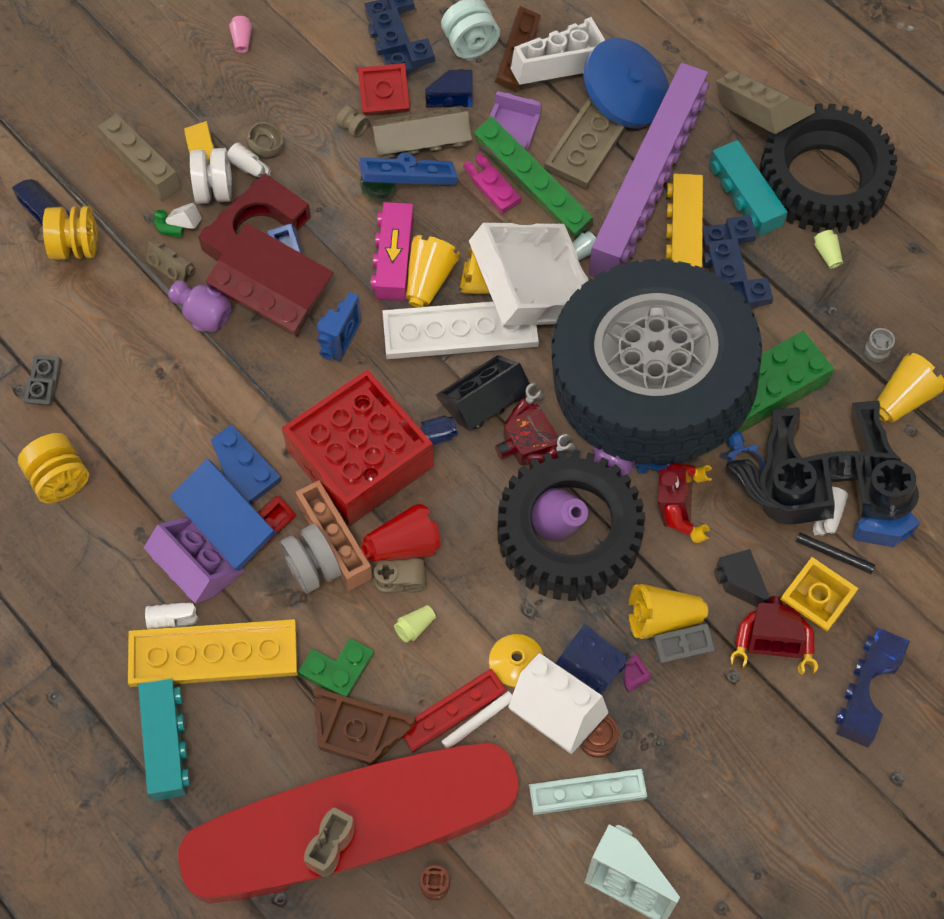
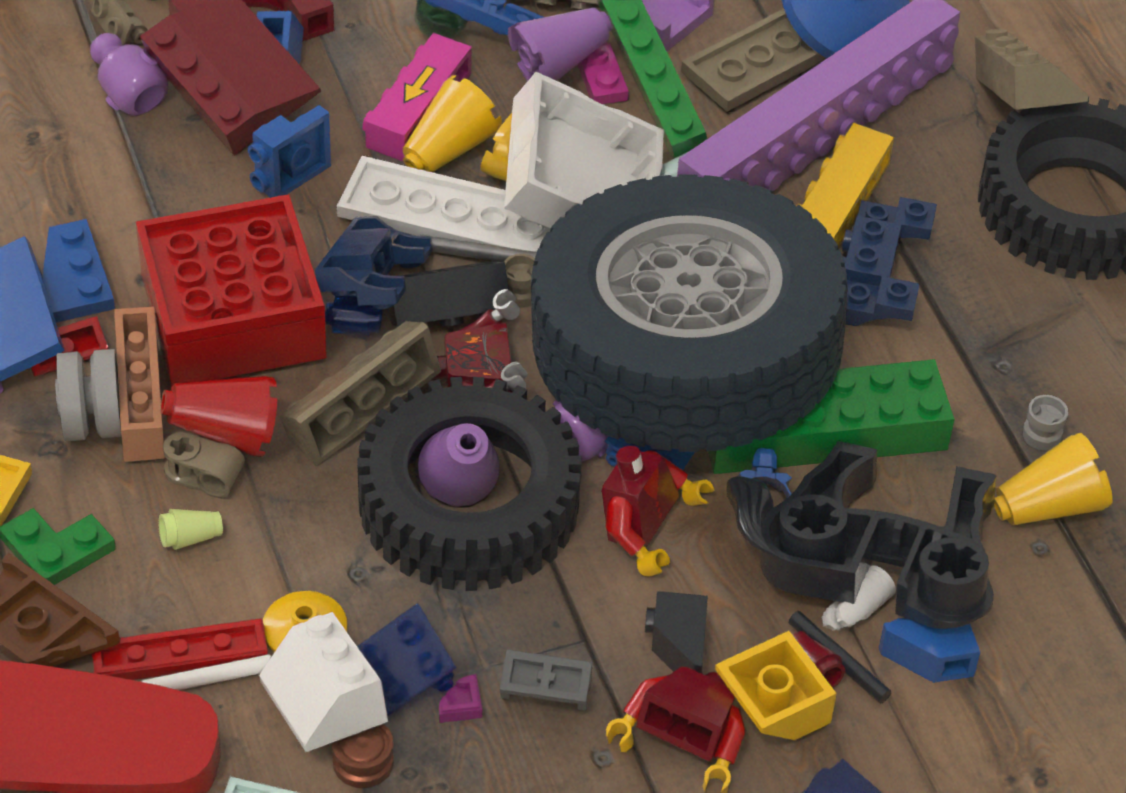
camera: 20 degrees right, 15 degrees down
(427, 393) = (364, 257): none -> dark blue bracket
(466, 182) = (558, 41): none -> medium lavender cone
(475, 486) = (354, 395): none -> dark tan slope
(497, 351) = (475, 250): none -> flat silver bar
(529, 360) = (519, 277): none -> dark tan wheel
(663, 611) = (544, 626): yellow cone -> none
(747, 187) = (954, 178): teal brick -> none
(829, 248) = (1036, 283): yellowish green cone -> none
(830, 560) = (825, 659): none -> dark red cone

